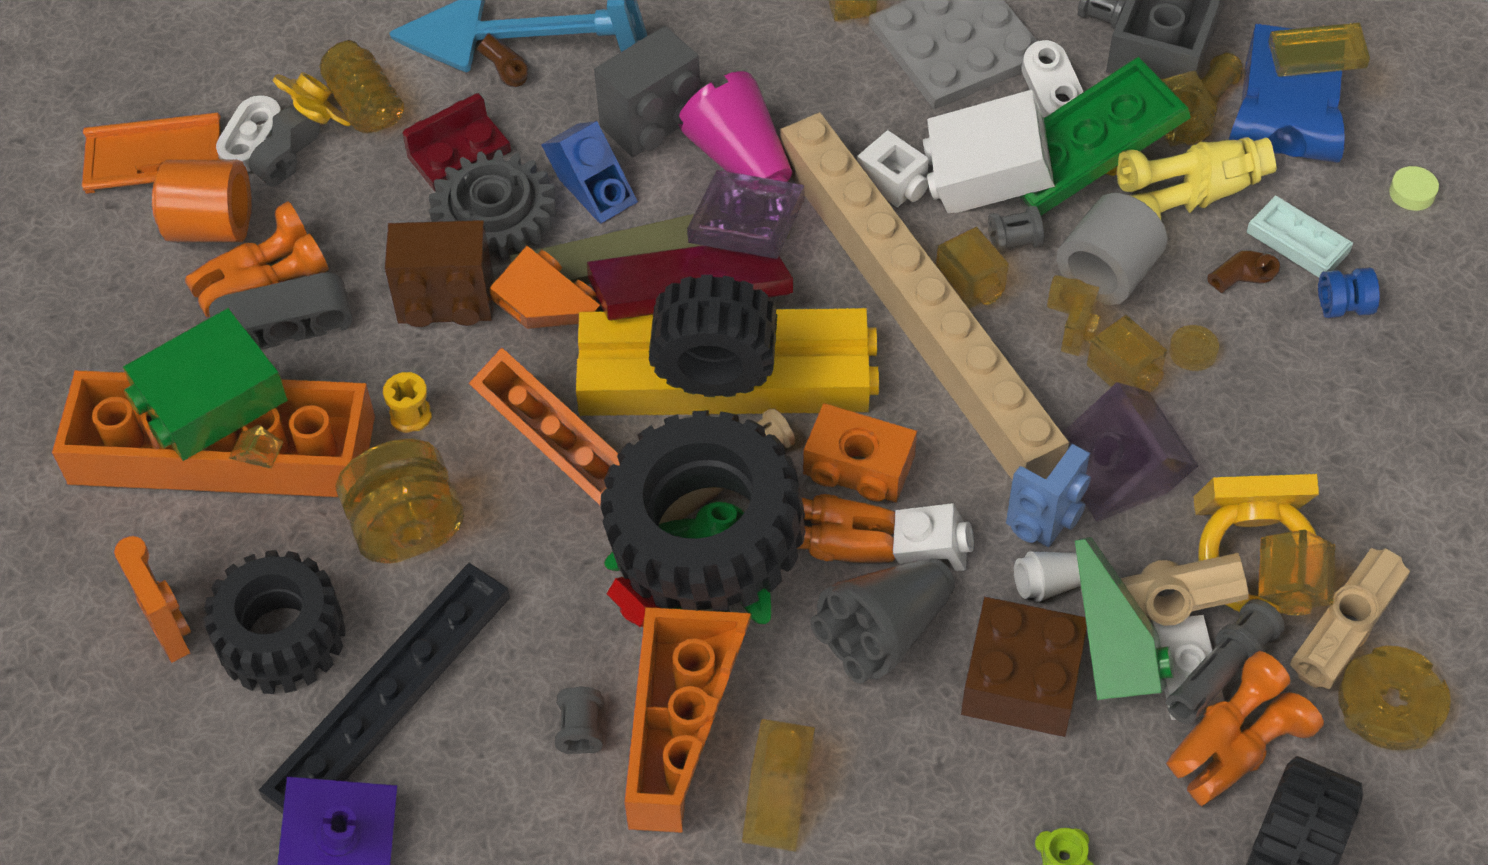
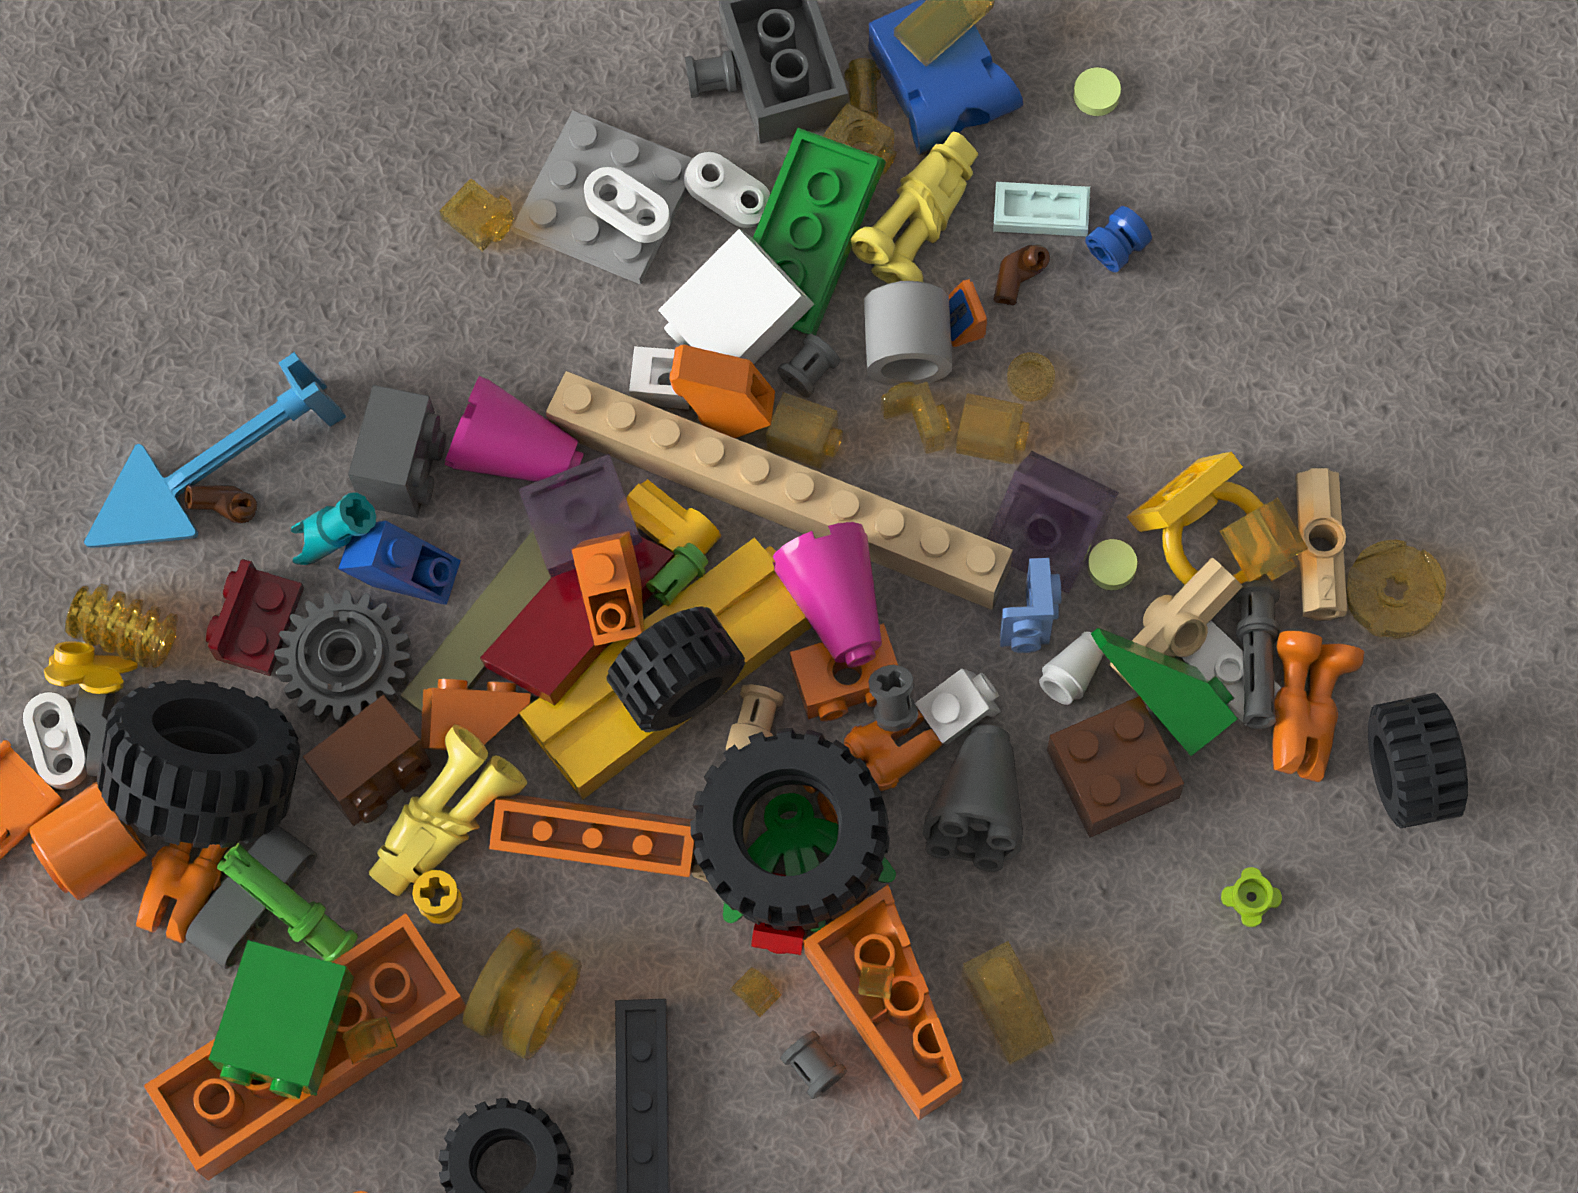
camera: 35 degrees left, 15 degrees up
(296, 347) = (304, 919): none -> bright green pin
(313, 183) = (198, 763): none -> black tyre
(440, 347) = (432, 830): none -> light yellow piece
(559, 111) = (334, 527): none -> teal piece
(584, 638) = (754, 989): none -> clear yellow piece
(674, 675) = (876, 980): none -> clear yellow piece
(724, 246) = (610, 587): none -> orange slope
(788, 290) = (678, 573): none -> bright green pin
(814, 276) = (668, 521): none -> yellow piece
(876, 485) = (892, 690): none -> dark grey bush
(894, 367) = (834, 589): none -> dark pink cone
(928, 192) = (722, 390): none -> orange slope
(967, 48) = (629, 206): none -> white plate
(1151, 521) = (1112, 564): none -> yellowish green tile
(1172, 270) = (966, 314): none -> slope

